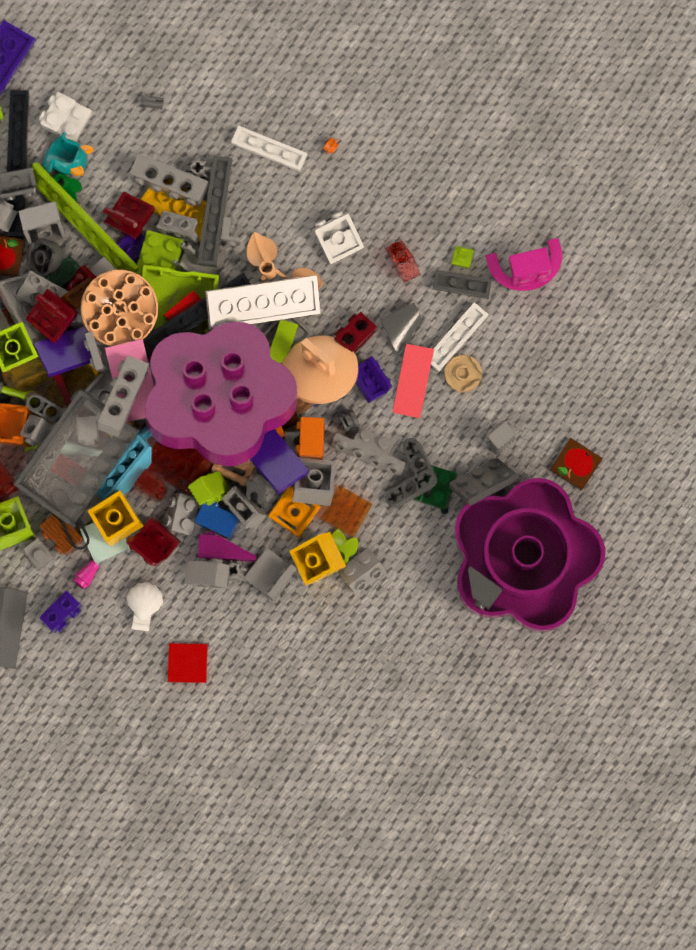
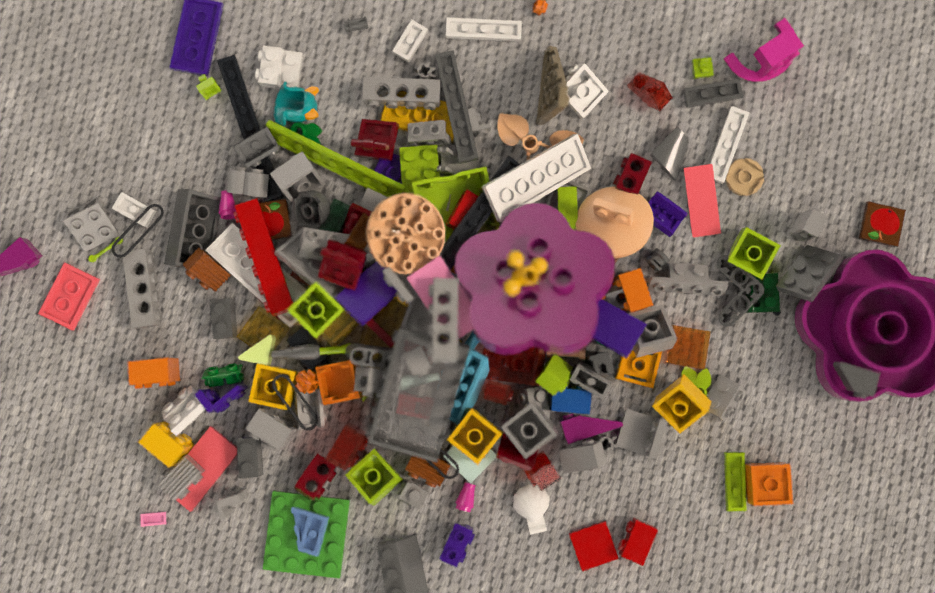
camera: 25 degrees left, 5 degrees up
(163, 573) = (544, 472): none -> clear red brick
(166, 528) = (529, 429): none -> light grey brick
(196, 135) = (410, 41): none -> white plate
(204, 363) = (518, 279): none -> yellow piece
(229, 672) = (637, 541): none -> red brick
(309, 223) = (553, 87): none -> dark tan plate
(343, 652) = (735, 481): none -> lime tile
(371, 662) = (768, 483): none -> orange container
(438, 444) = (753, 252): none -> lime slope

